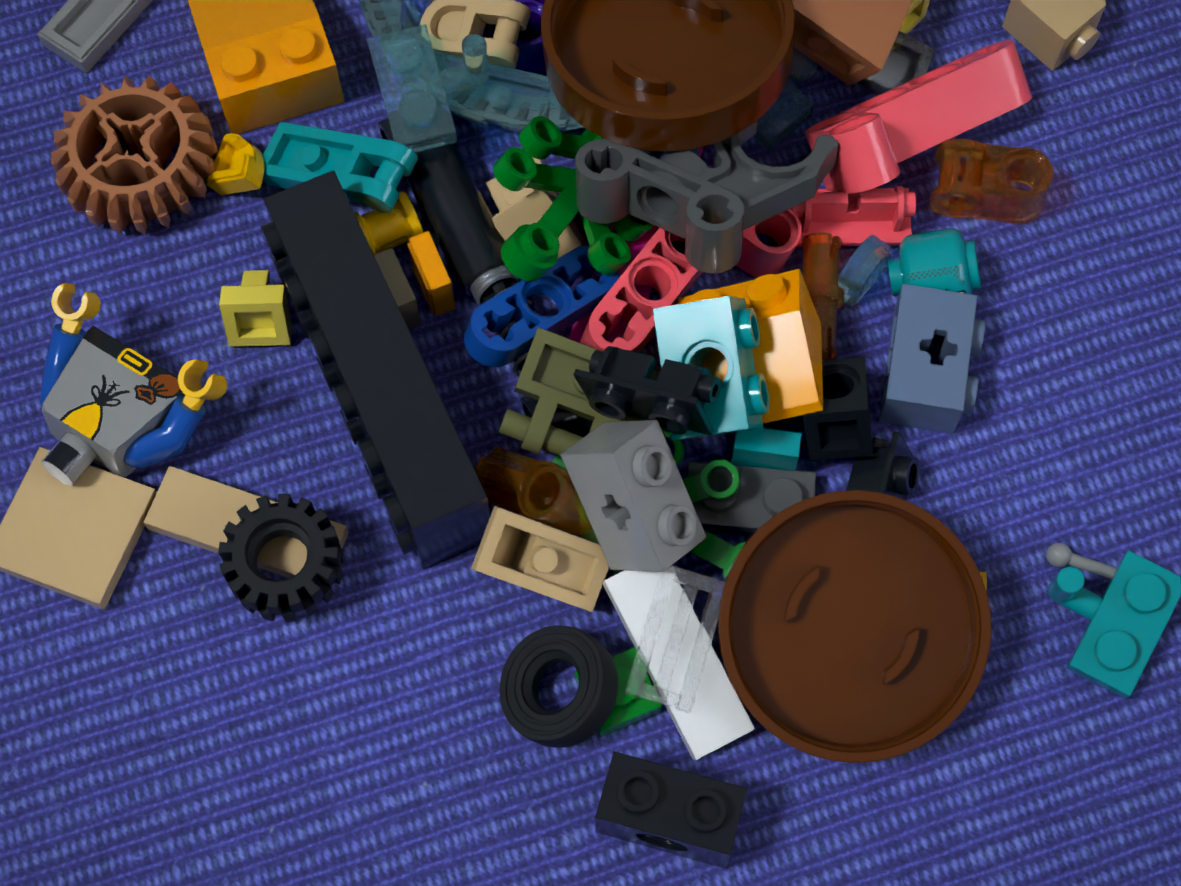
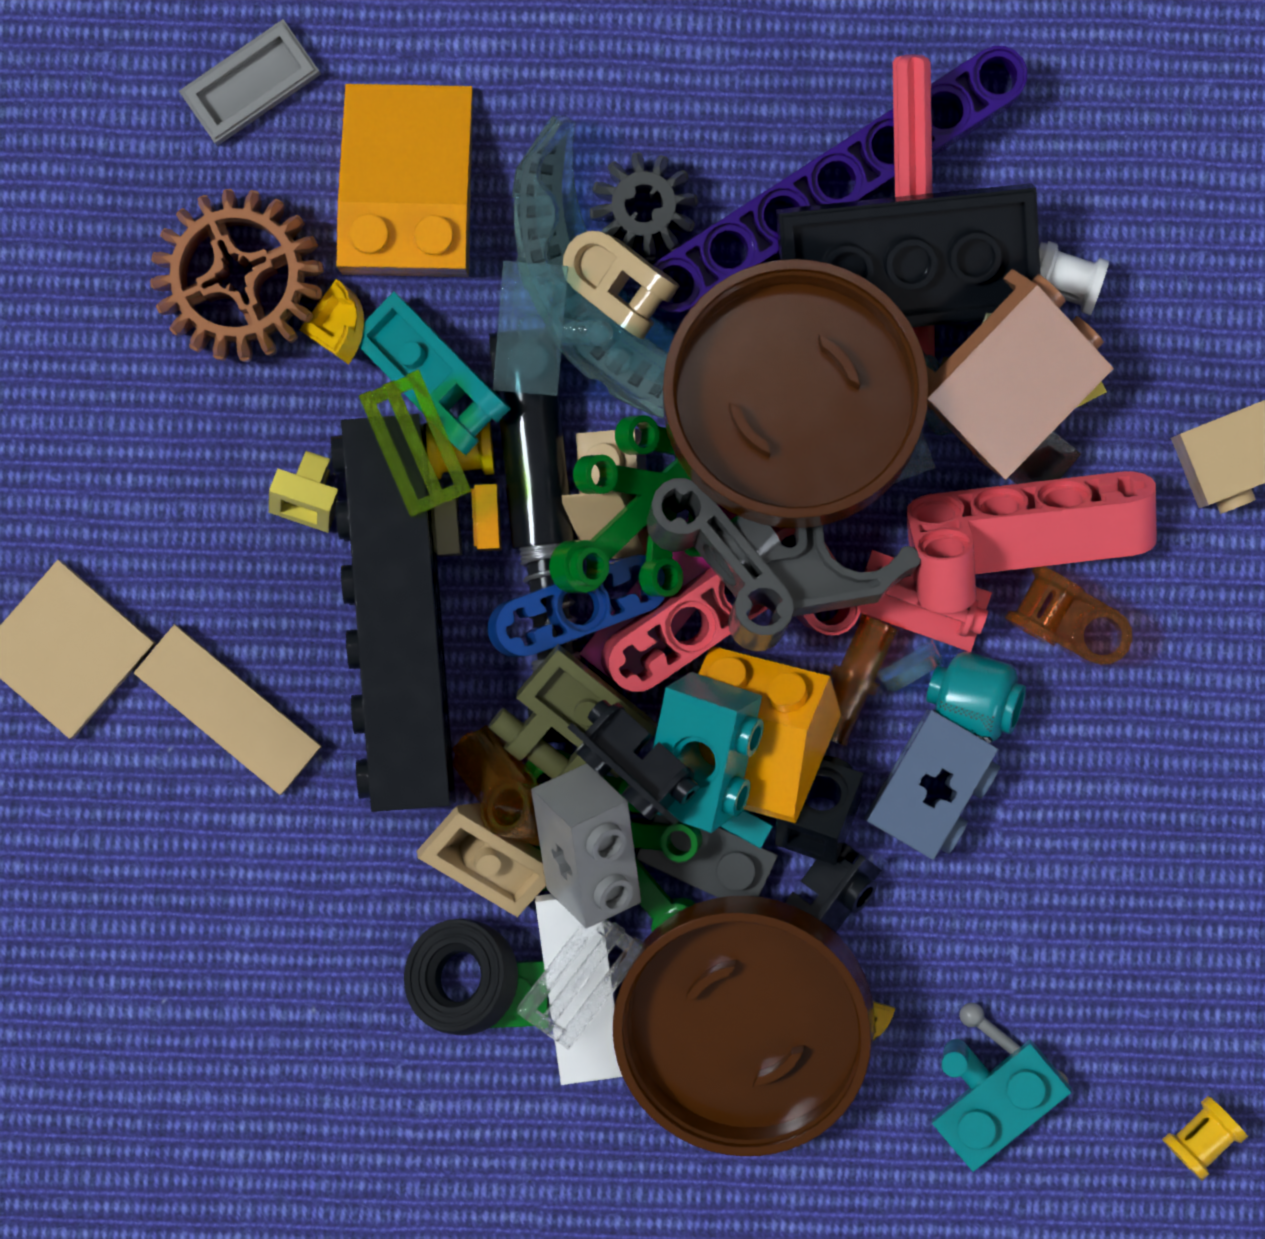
camera: 20 degrees right, 20 degrees up
(112, 401) = (139, 545): torso -> none
(272, 521) = (211, 777): black tyre -> none
(306, 154) = (392, 392): none -> clear neon green tile
(670, 809) = (518, 1126): black brick -> none

